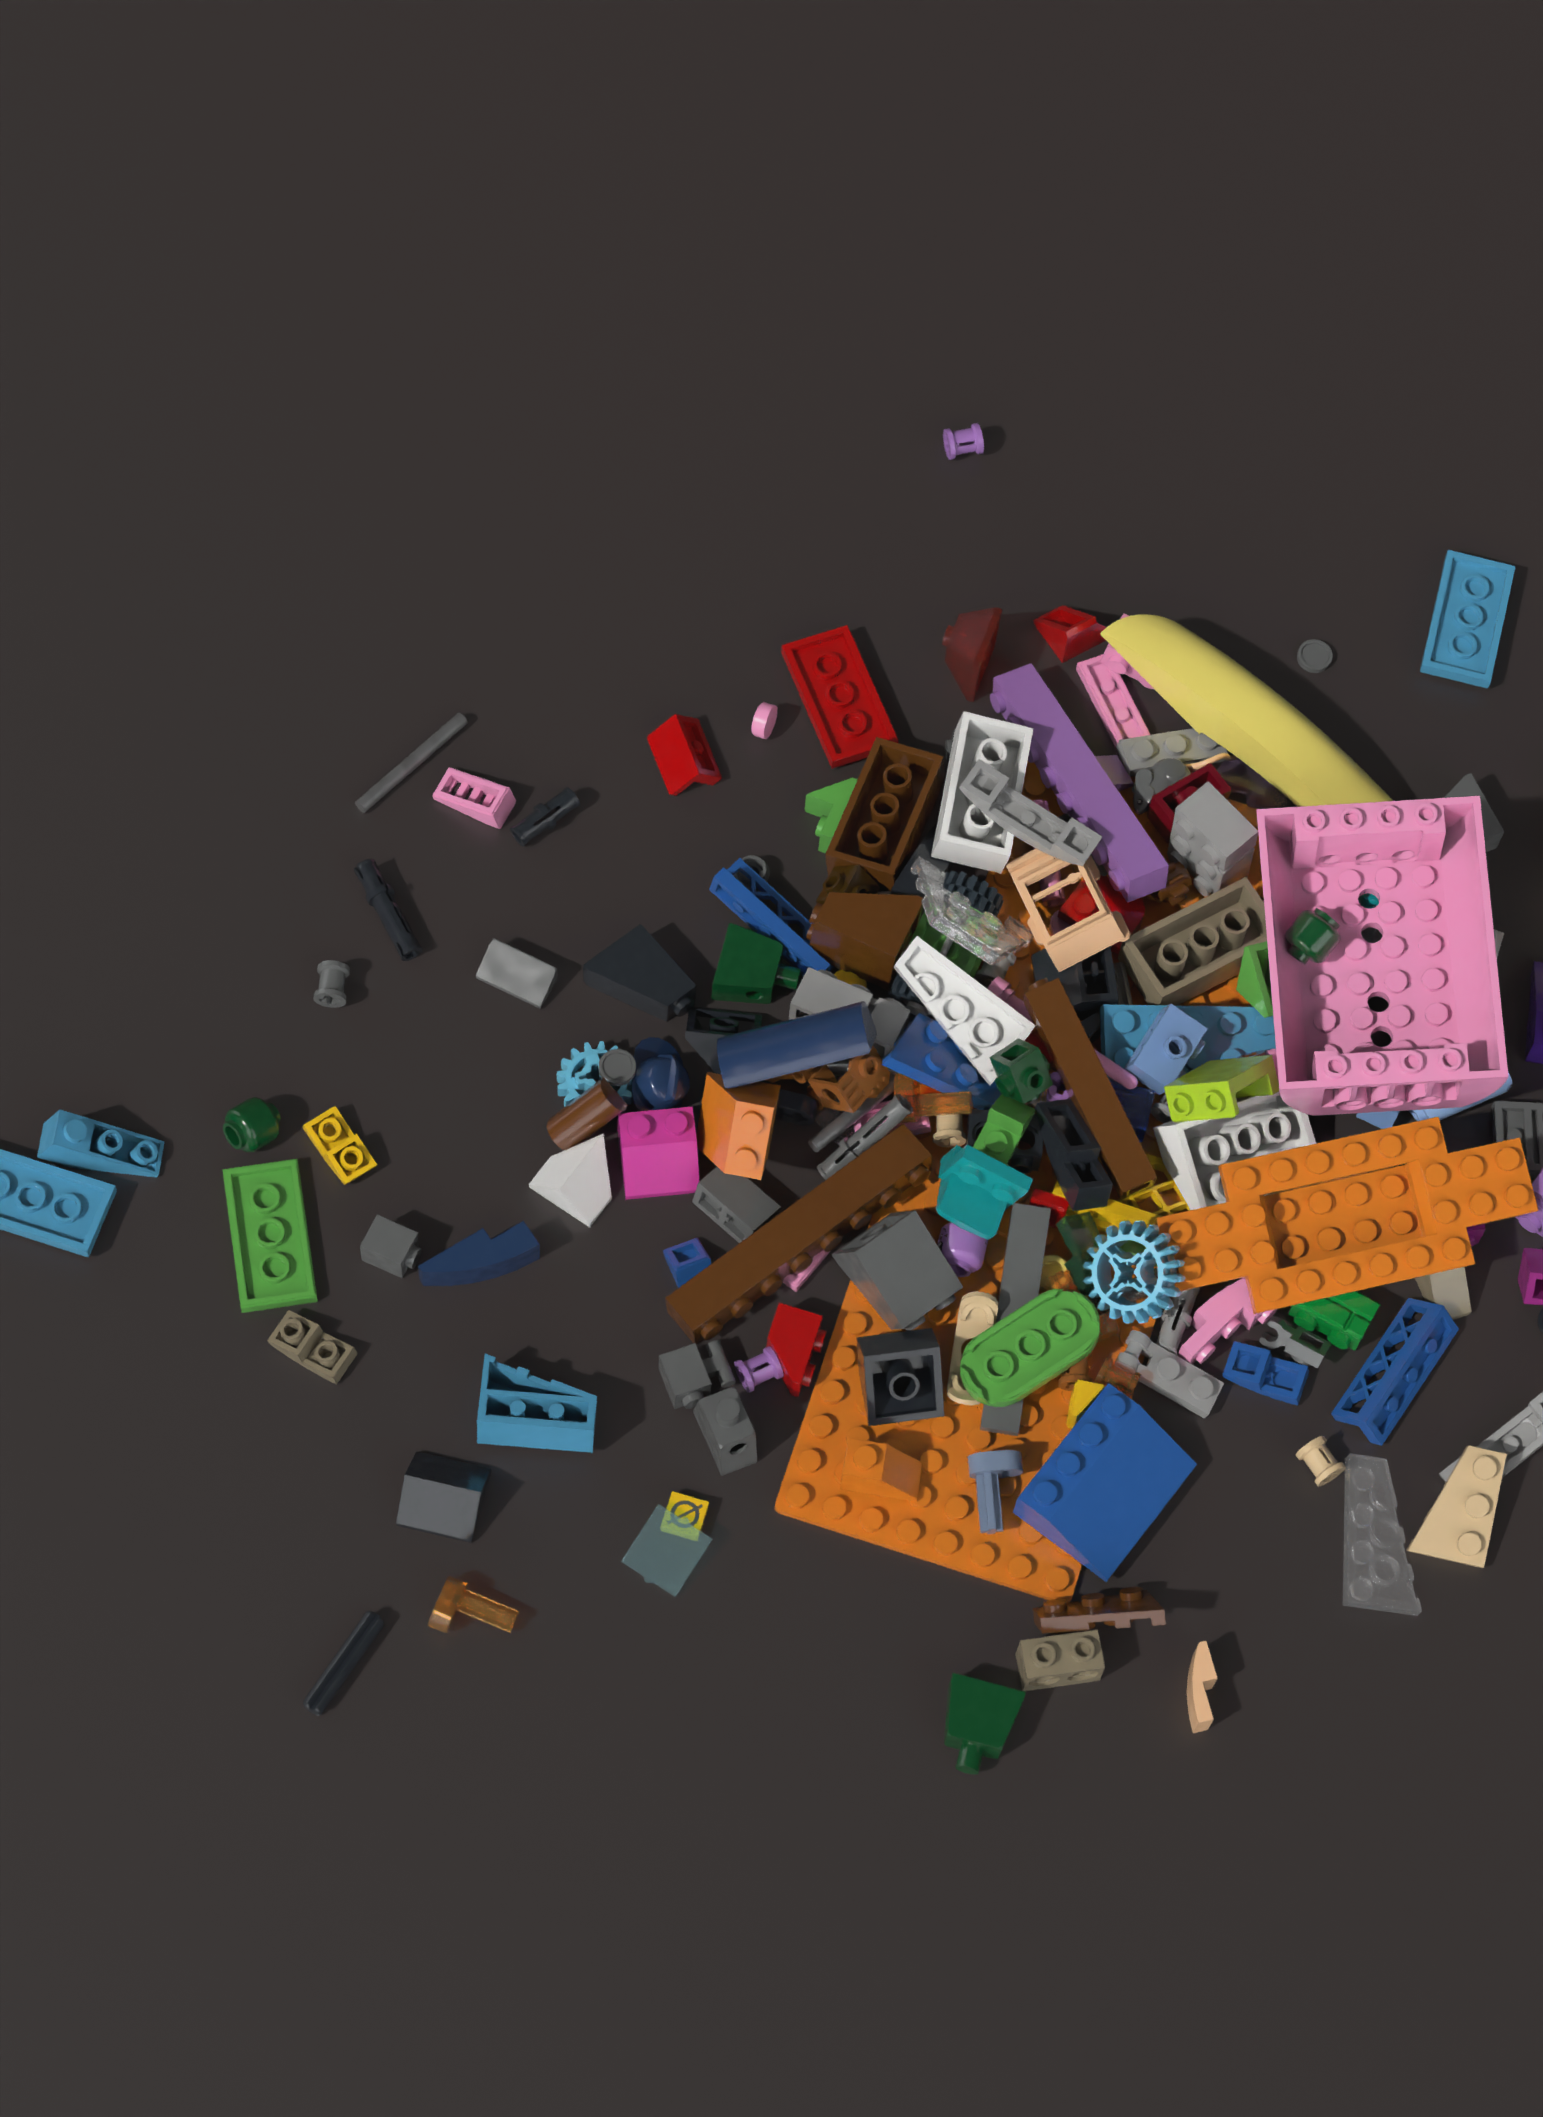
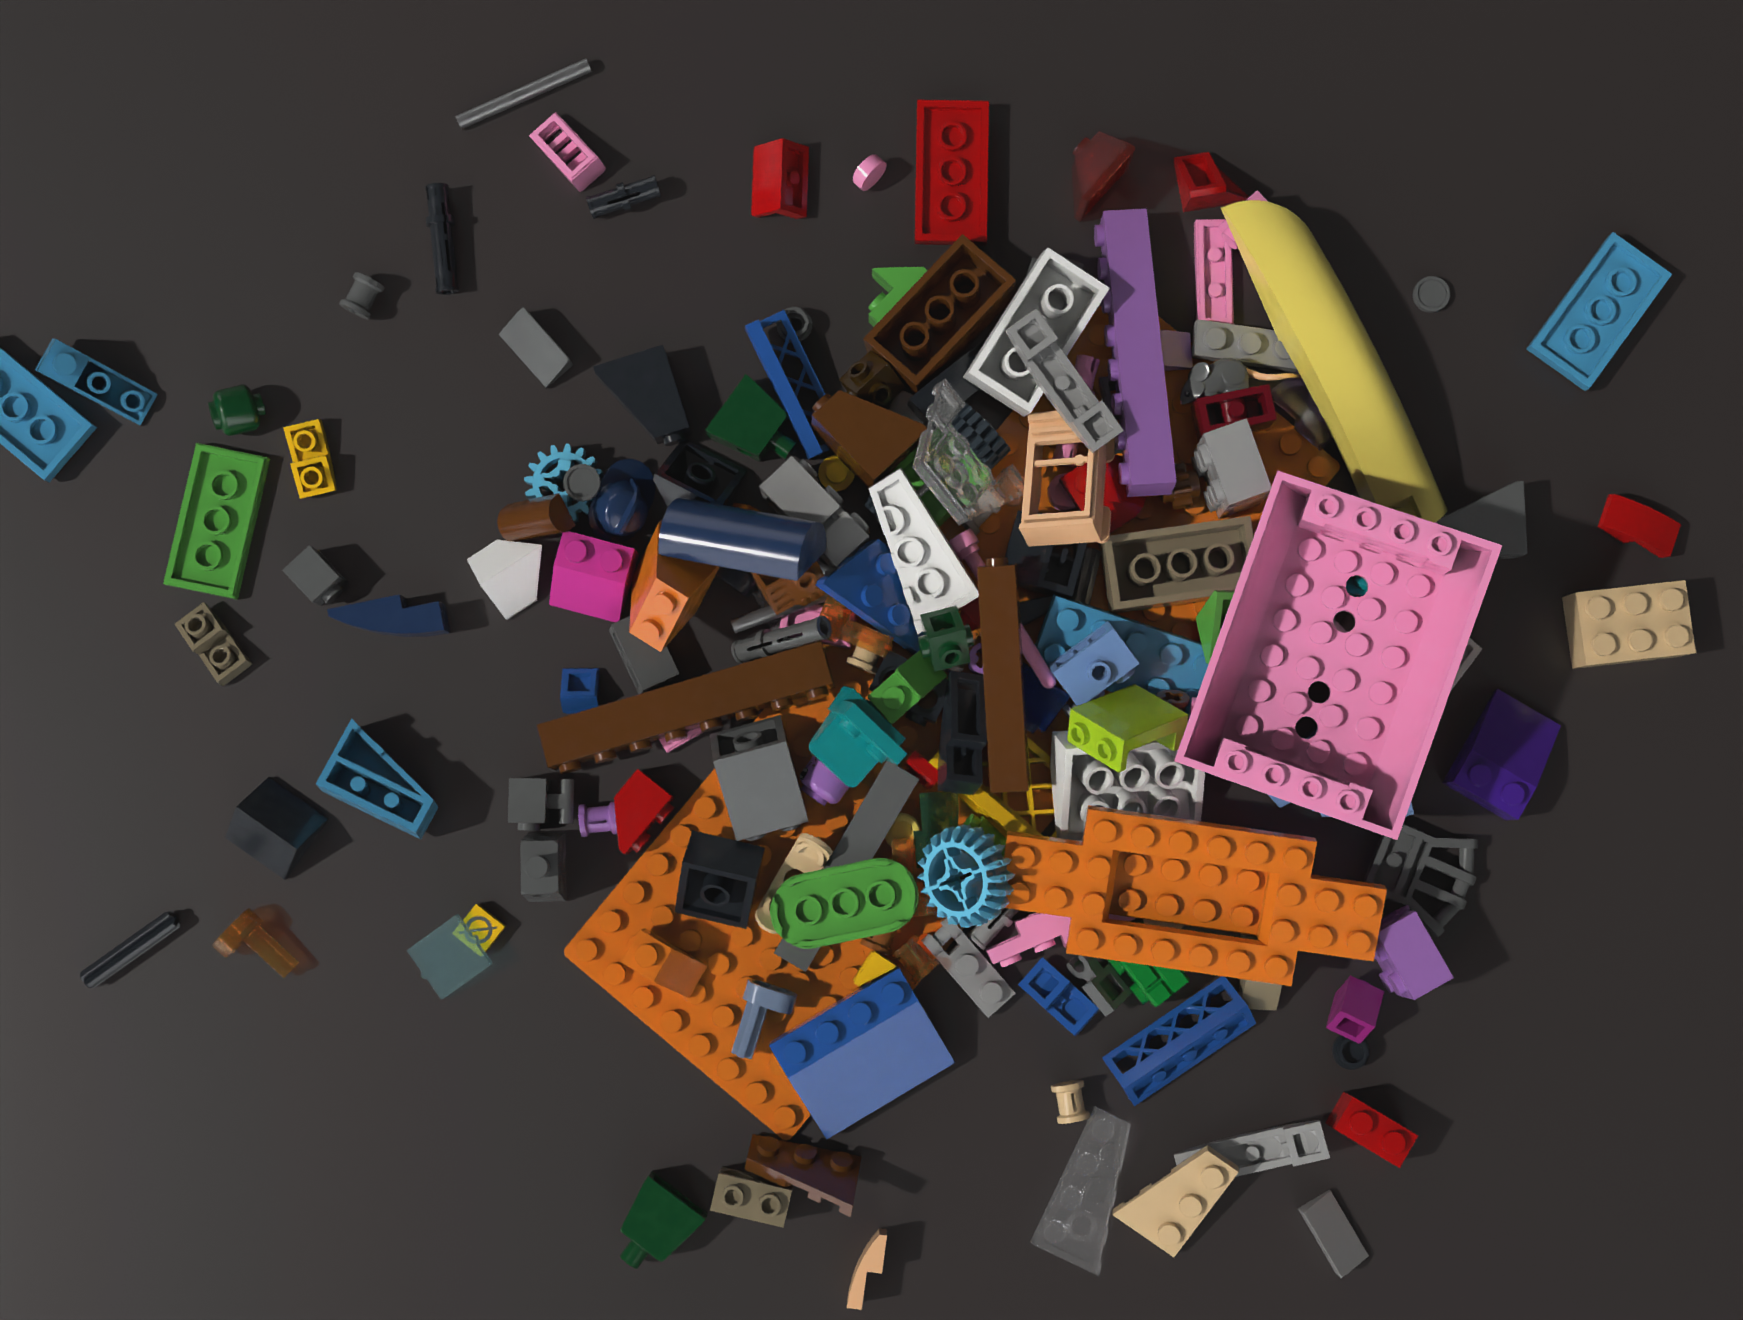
camera: 25 degrees right, 20 degrees up
(1312, 936) = (1281, 609): dark green head -> none

